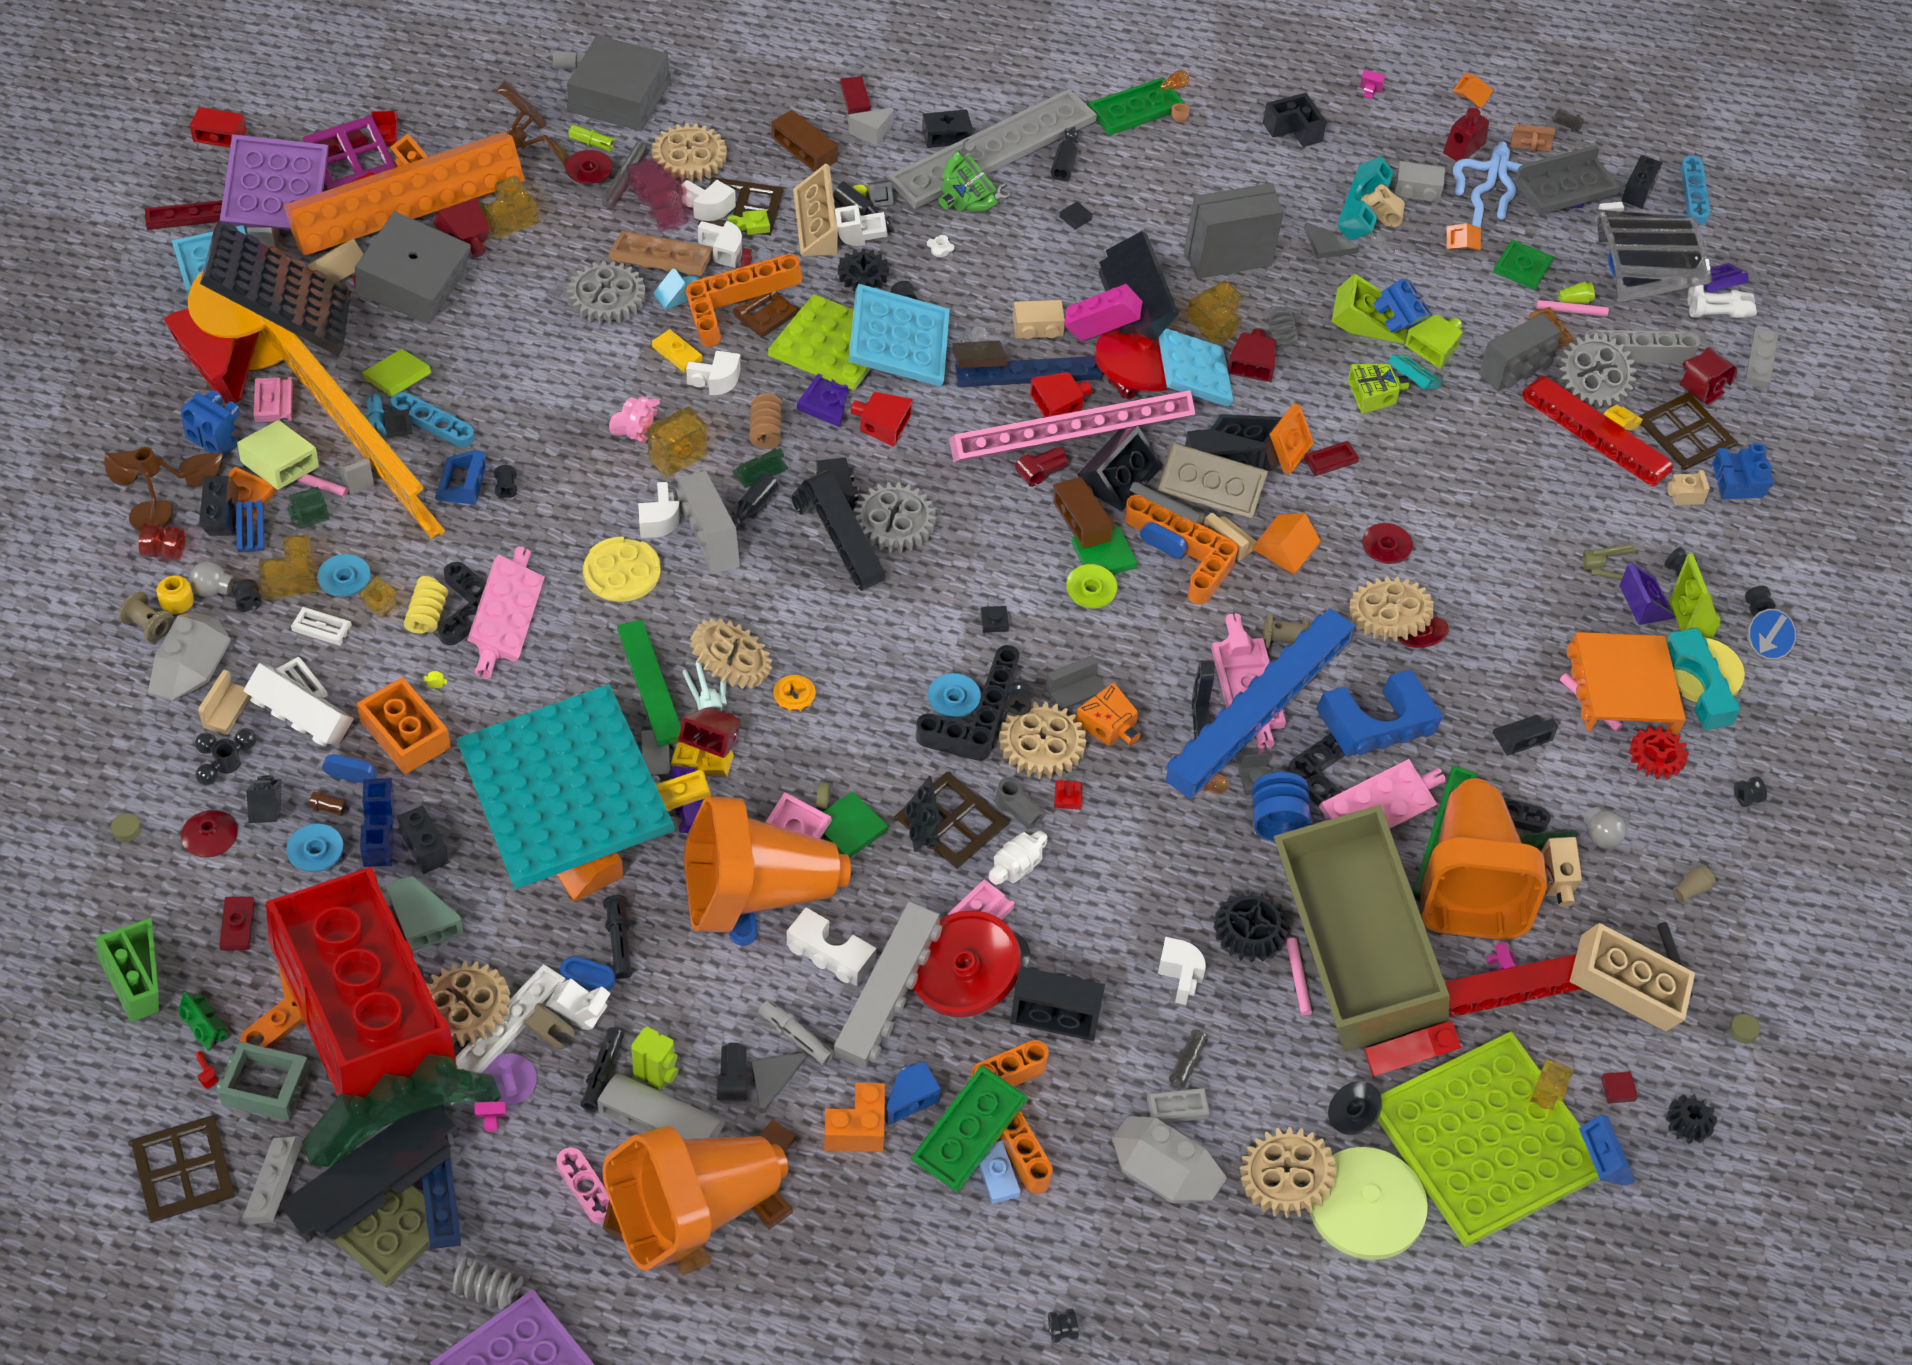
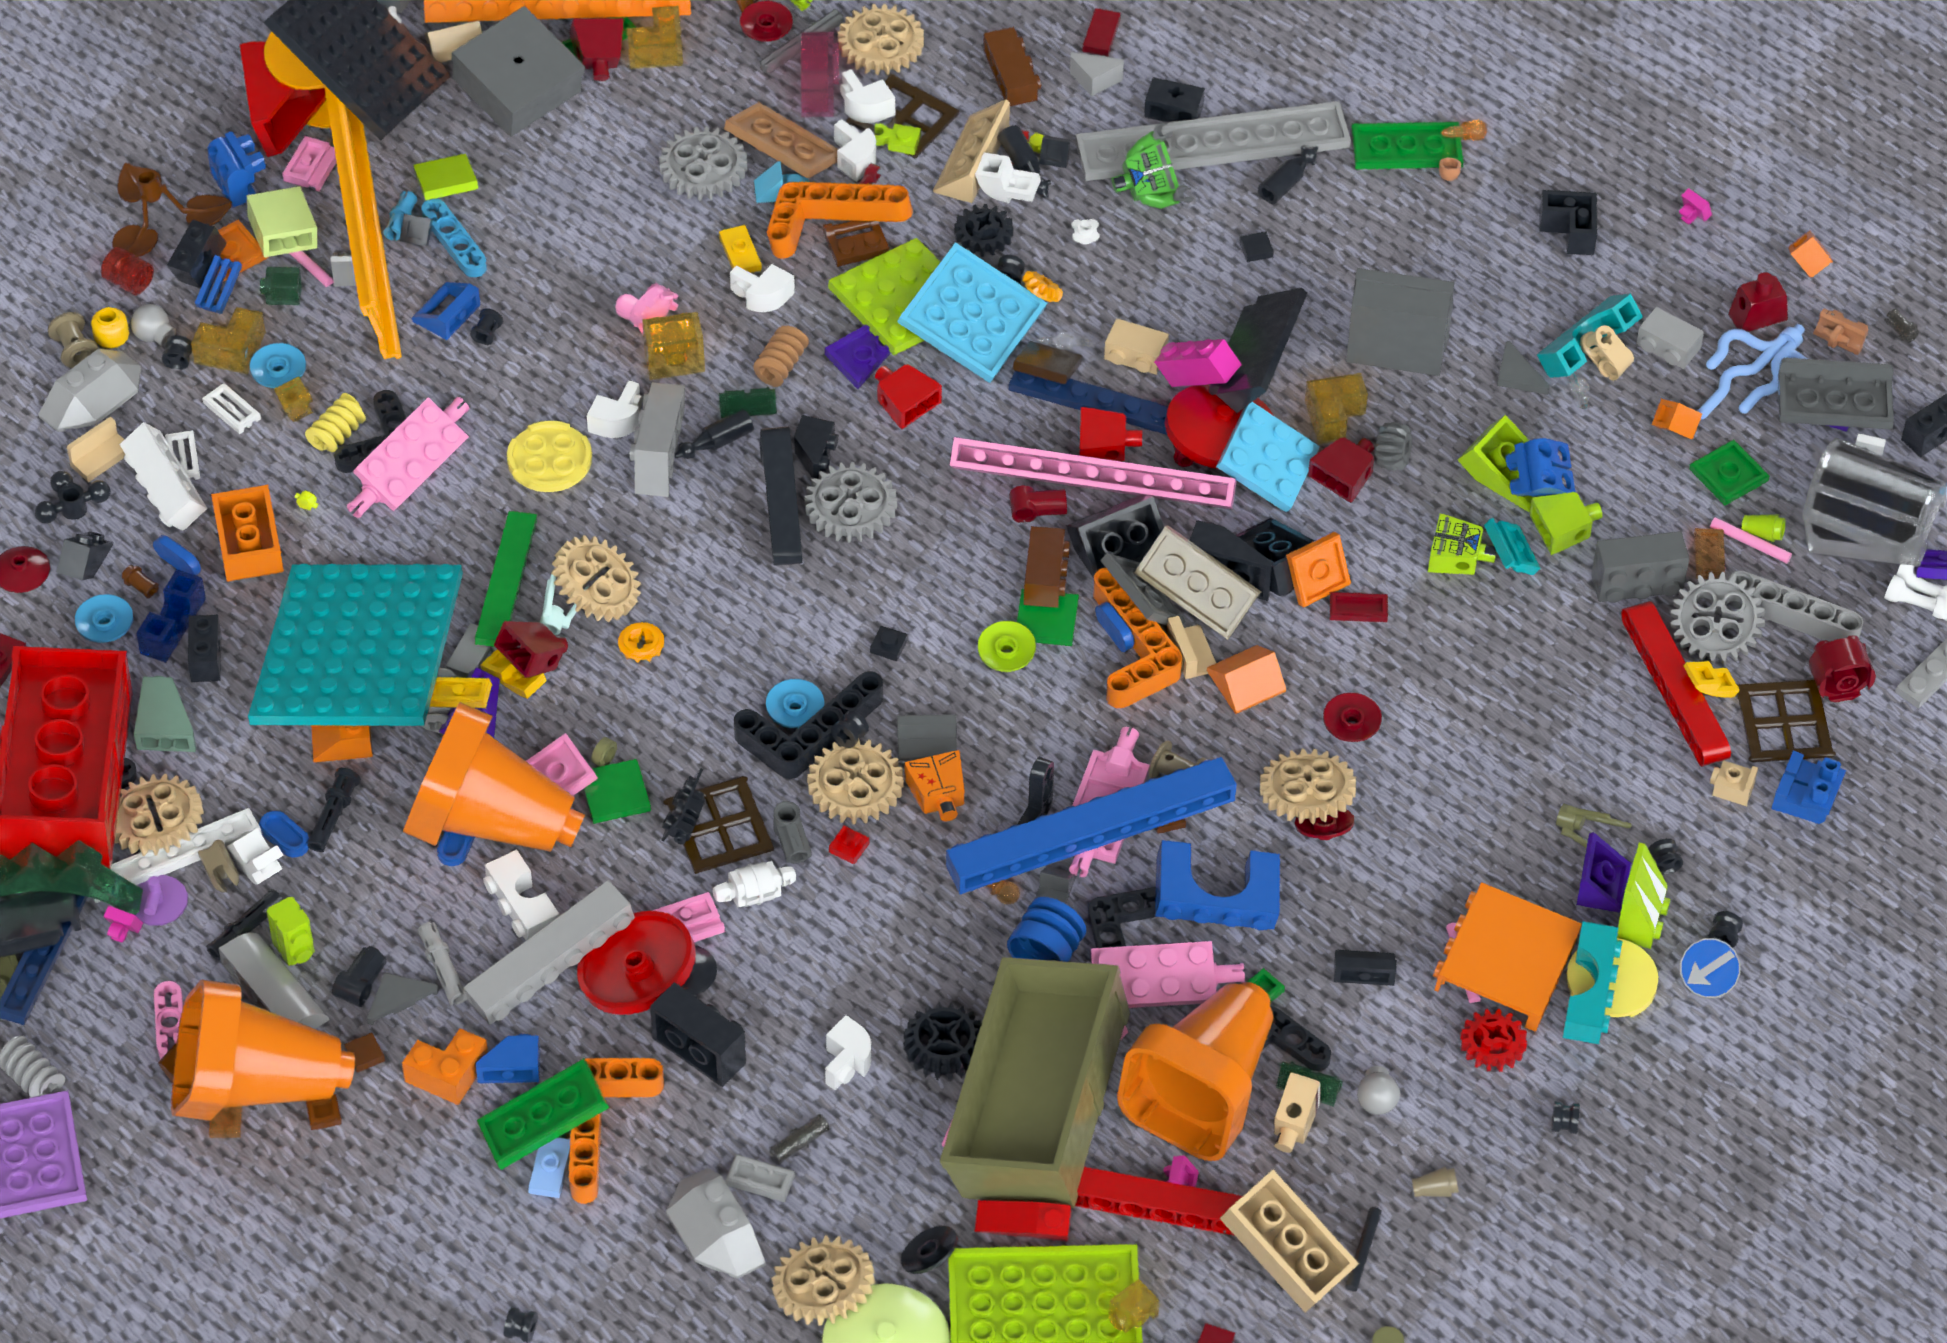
camera: 30 degrees right, 0 degrees up
(938, 298) = (1042, 287): none -> light orange gear

